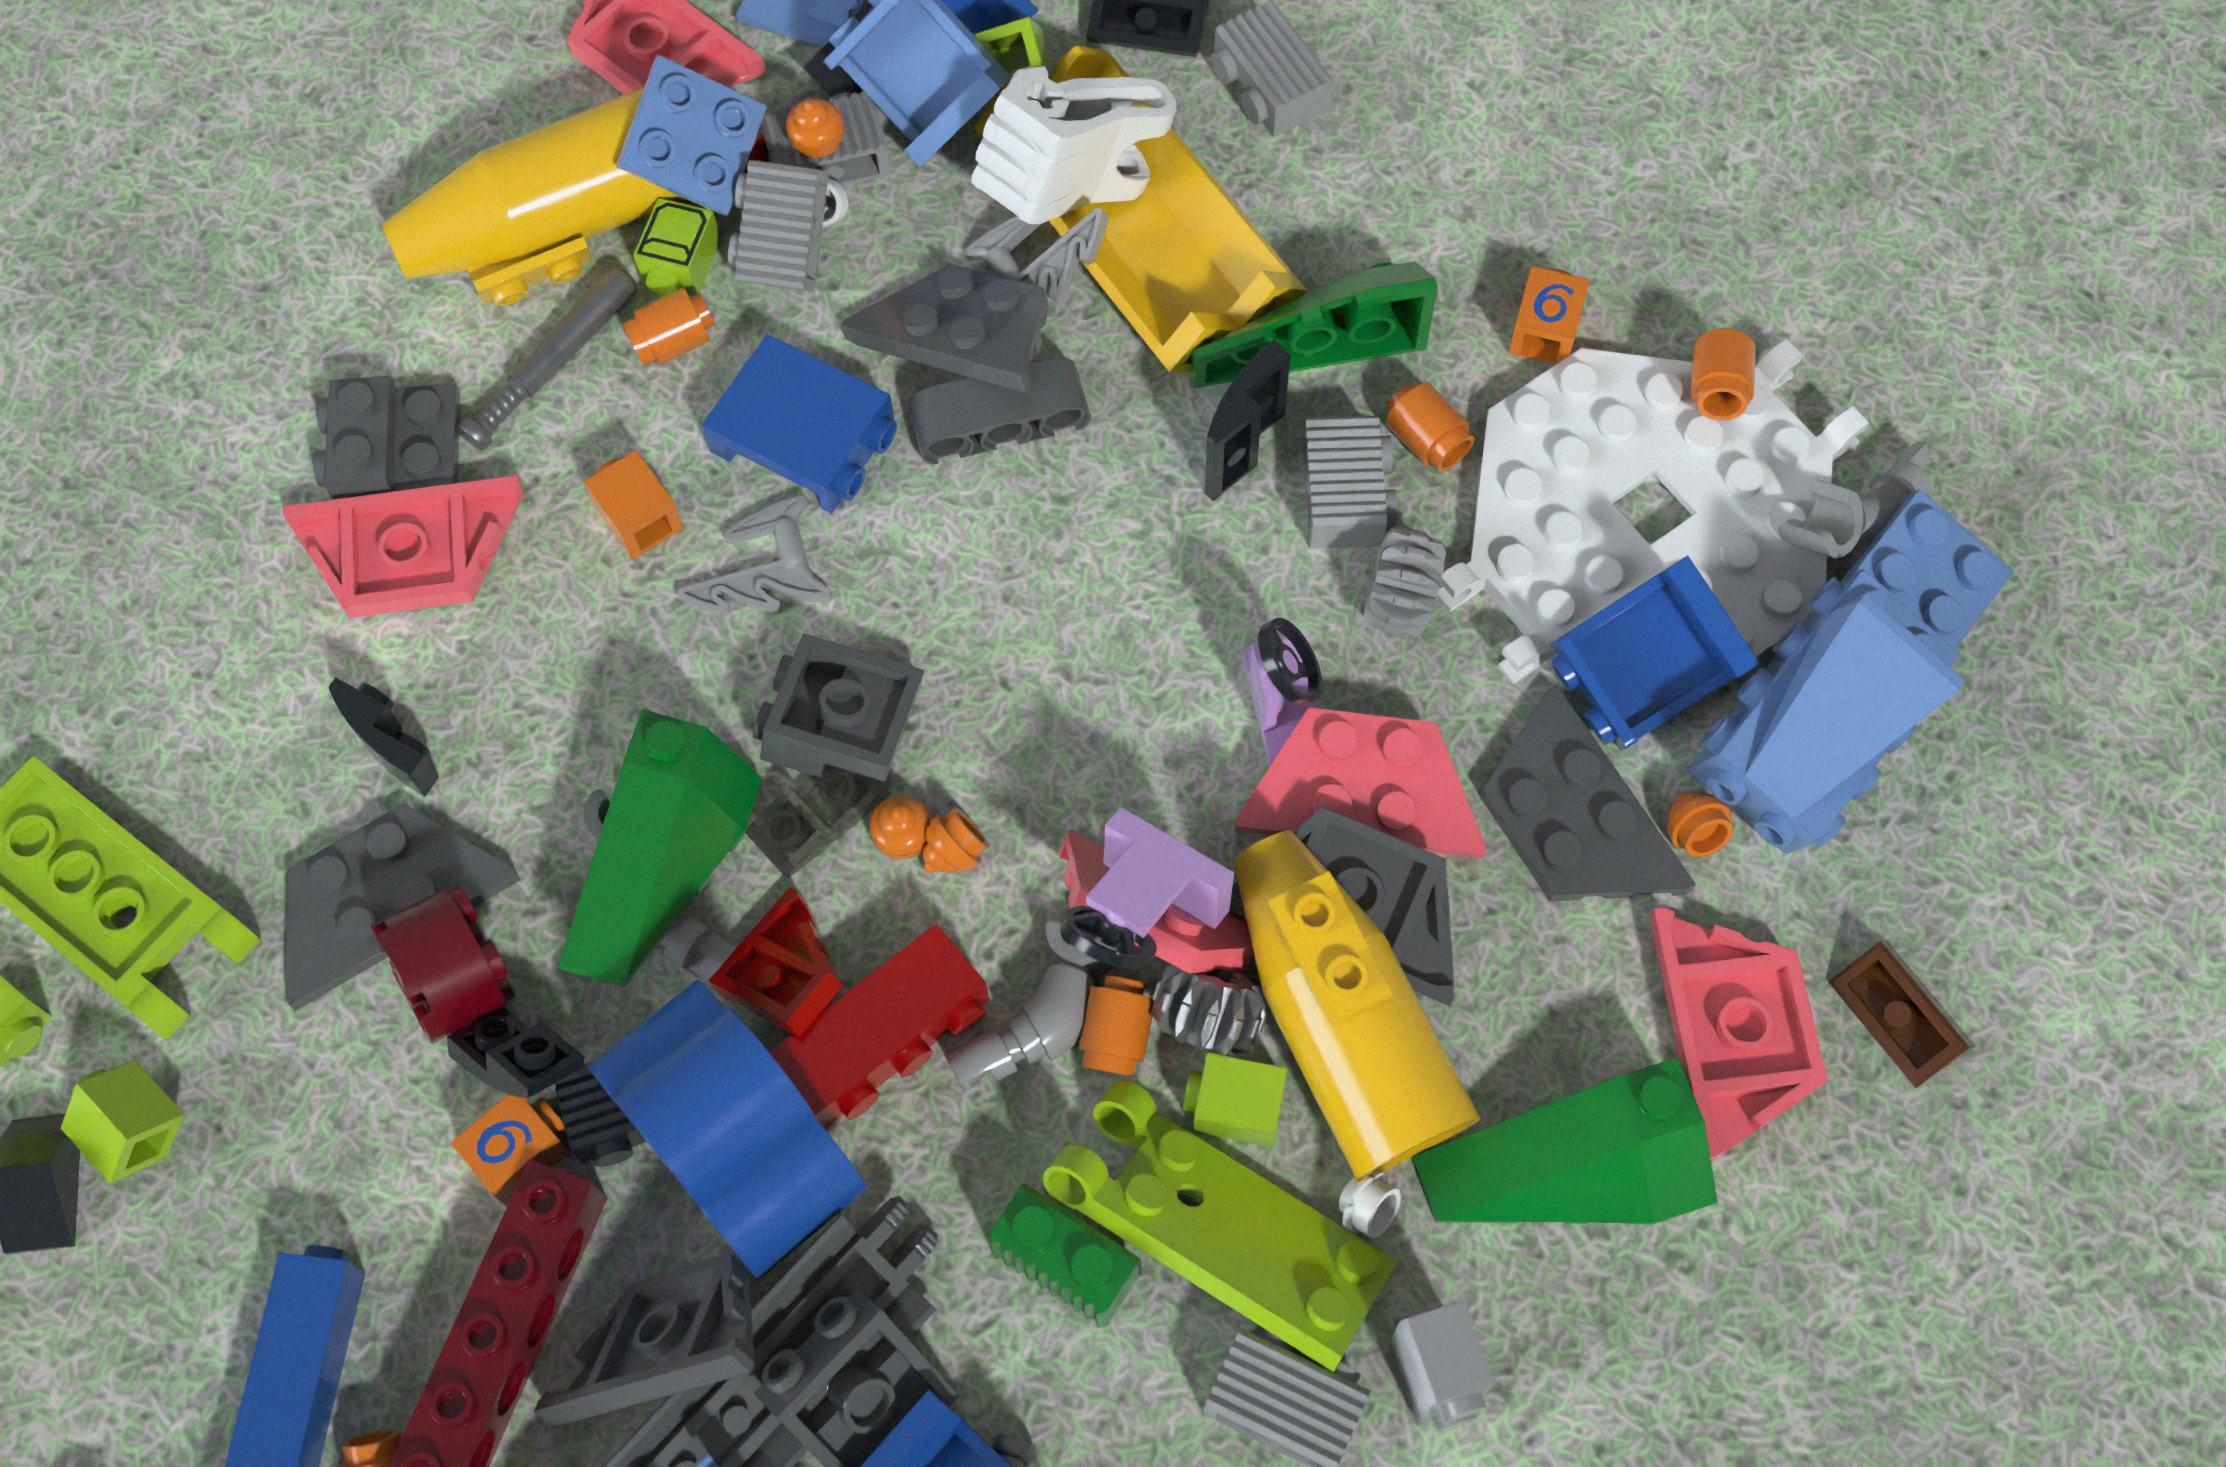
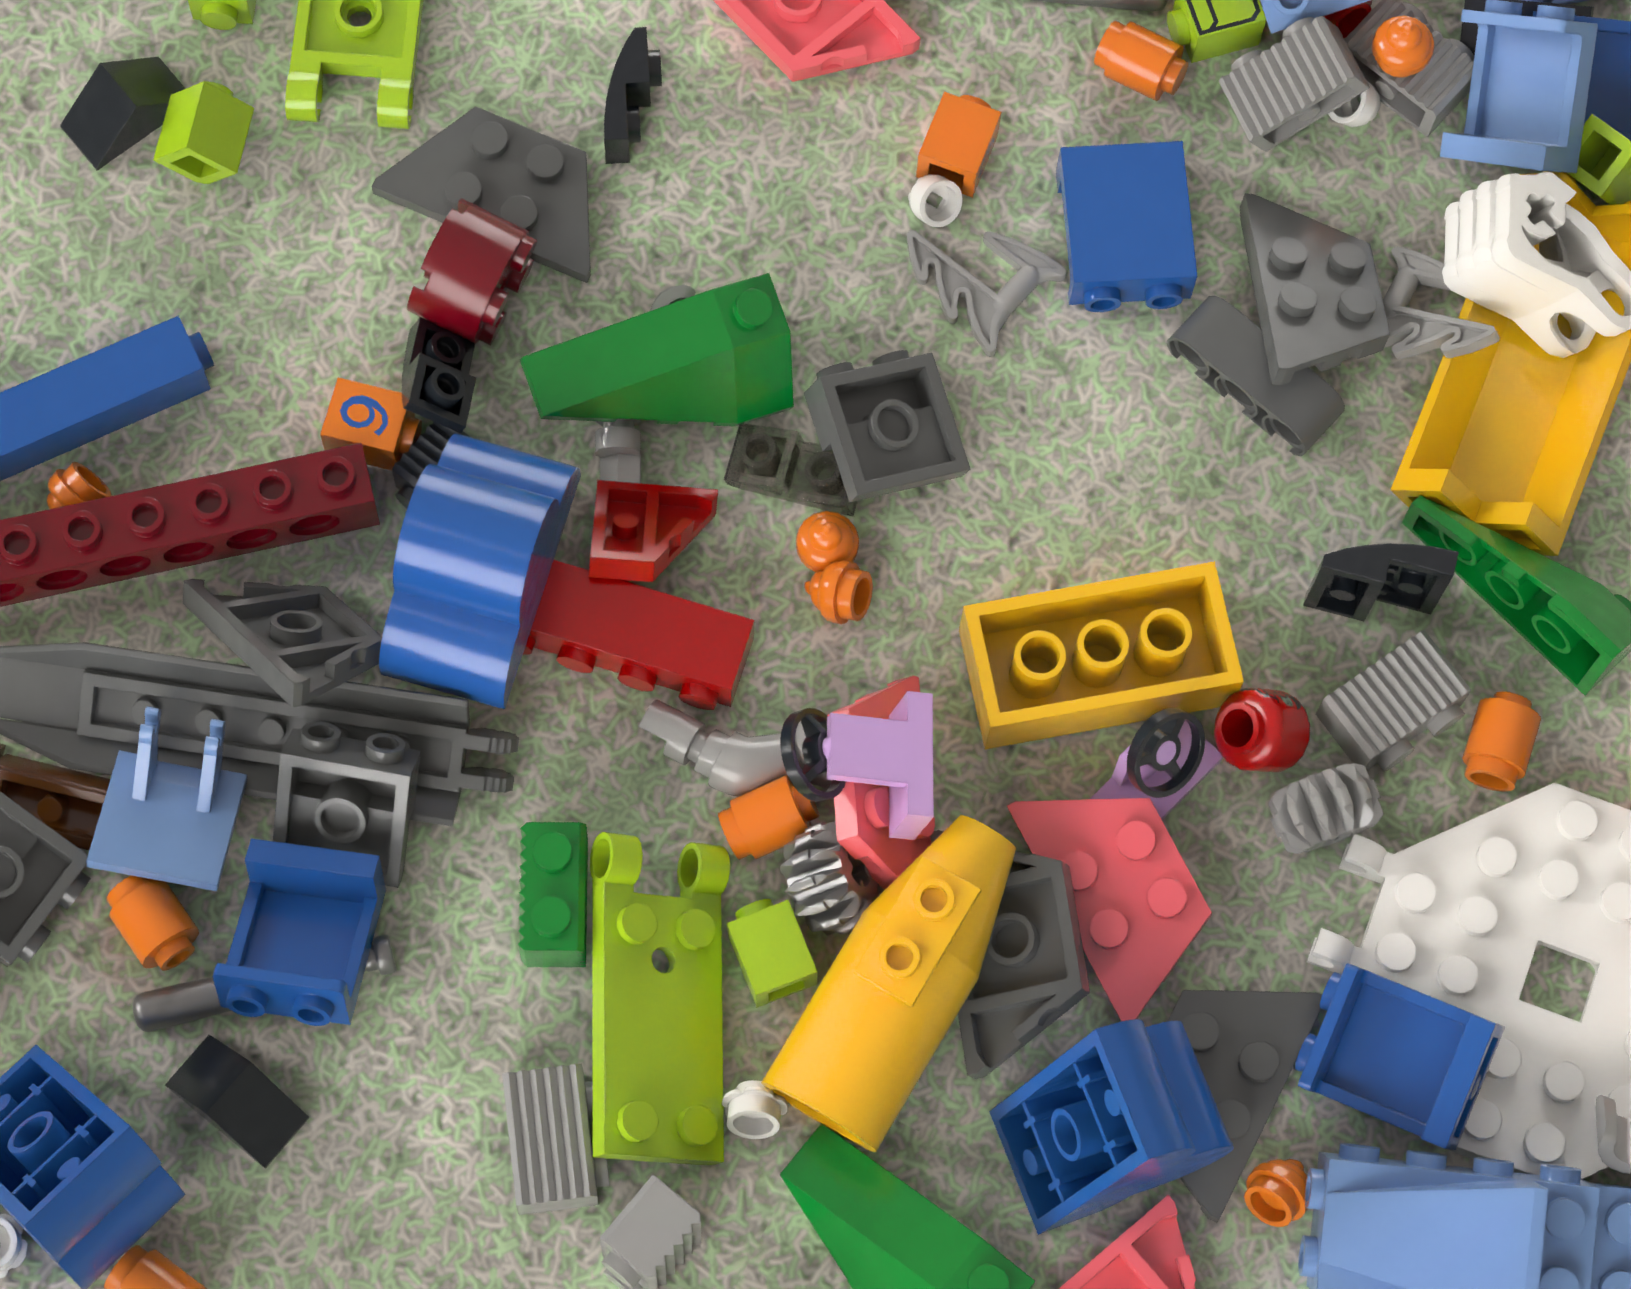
camera: 50 degrees right, 5 degrees up
(679, 549) = (948, 207): none -> white hinge
(1157, 671) = (1099, 654): none -> yellow brick
(1286, 590) = (1262, 730): none -> red head
(1581, 913) = (1110, 1122): none -> blue brick

